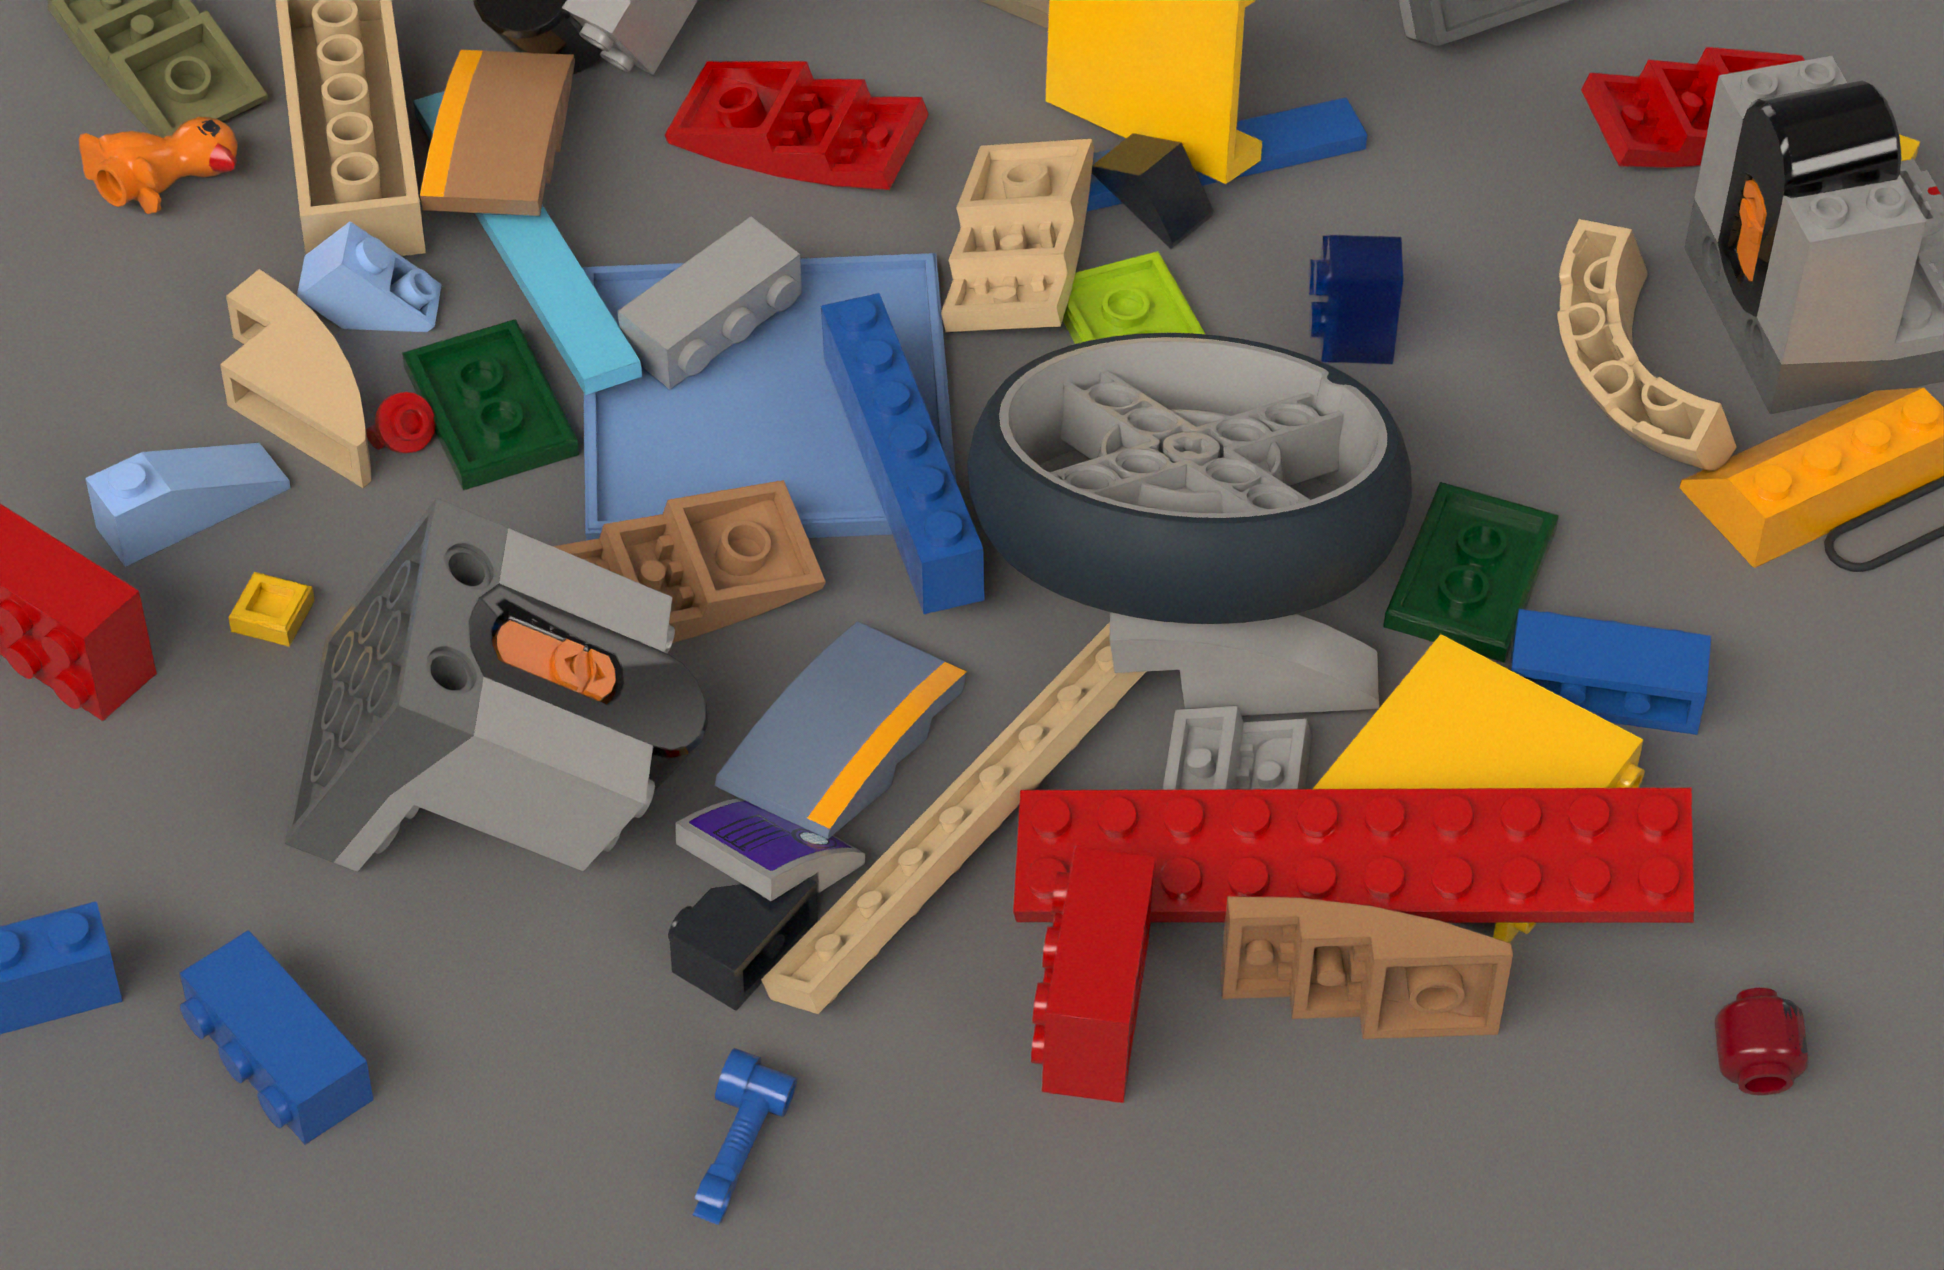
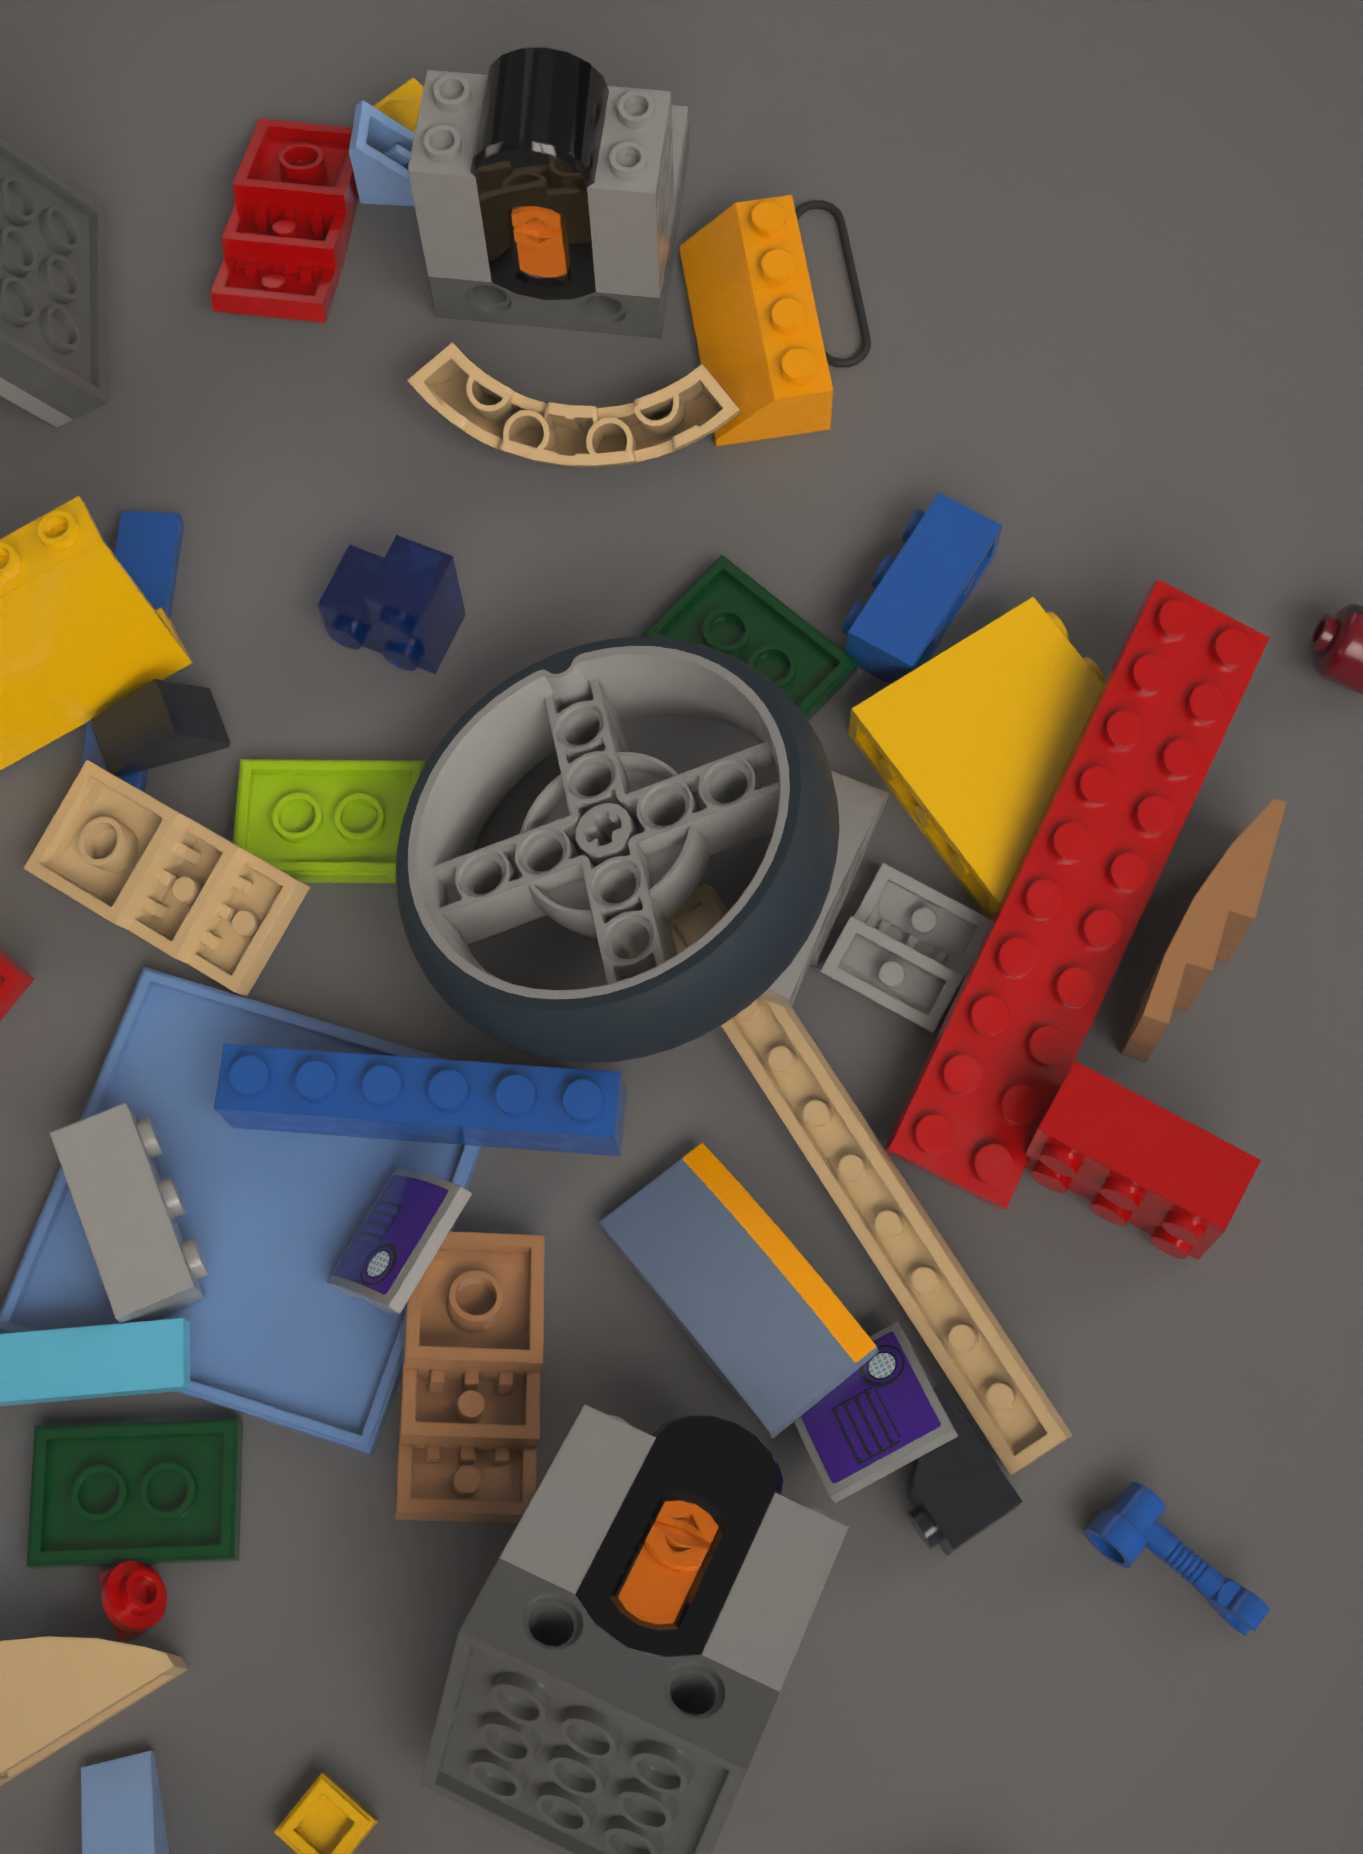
camera: 65 degrees left, 20 degrees up
(767, 468) = (399, 1239): none -> slope

